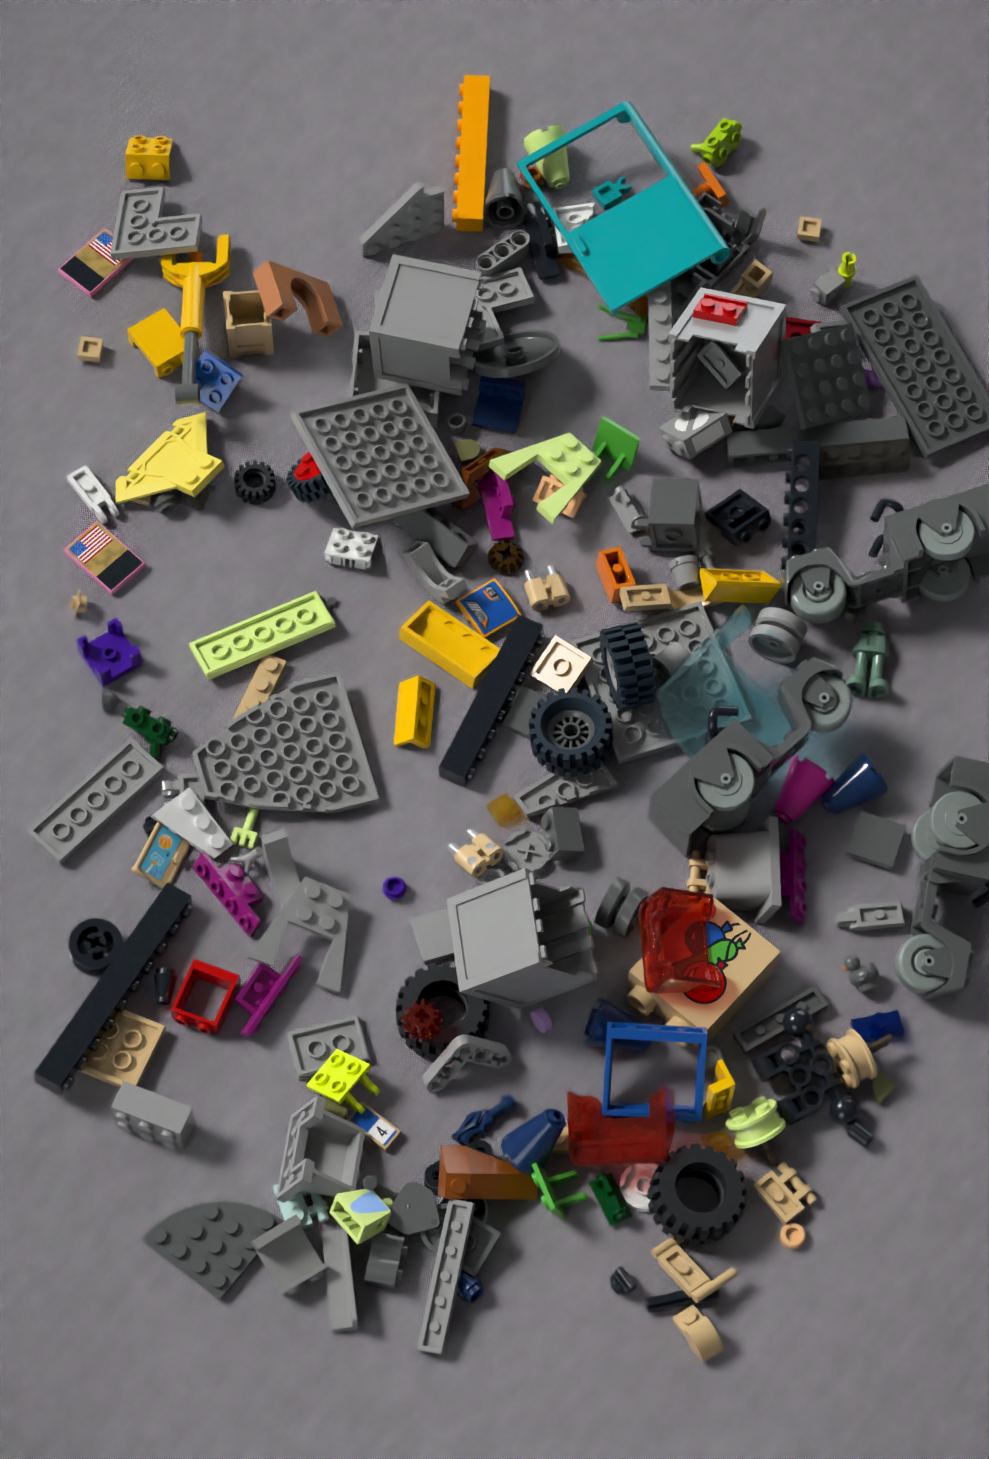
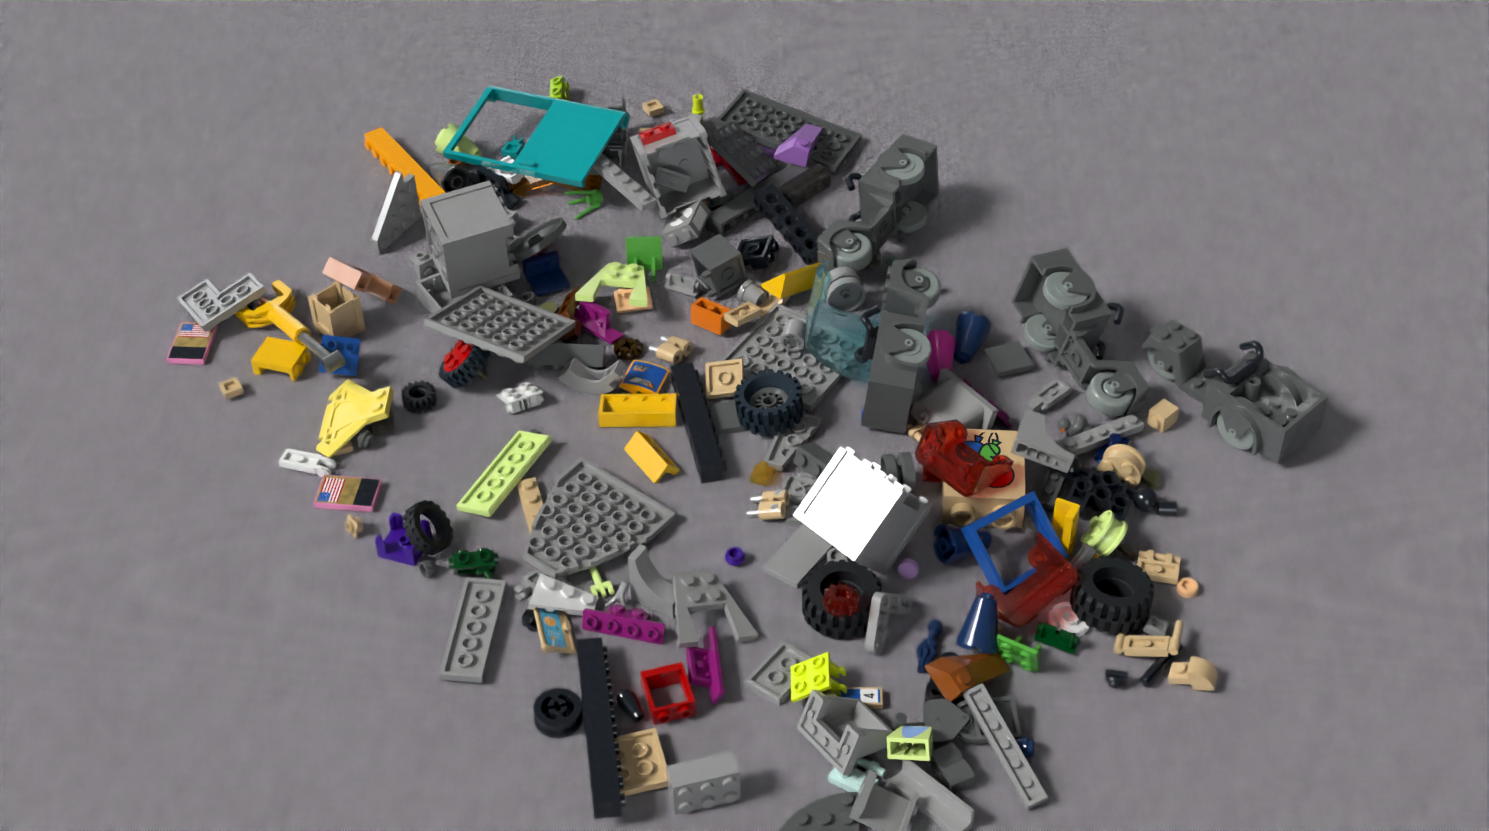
camera: 35 degrees left, 20 degrees down
(148, 158) = (182, 274): yellow bracket -> none
(153, 663) = (416, 533): none -> black tyre
(627, 666) = (774, 341): black wheel -> none
(702, 1135) = (1083, 555): none -> dark grey tile
(716, 1256) = (1156, 626): none -> light grey tile
(770, 975) = (1036, 445): none -> light grey arch
(859, 1001) = (1100, 435): none -> light grey plate
(905, 401) = (799, 146): none -> medium lavender wedge
(965, 1024) = (1163, 415): none -> tan brick

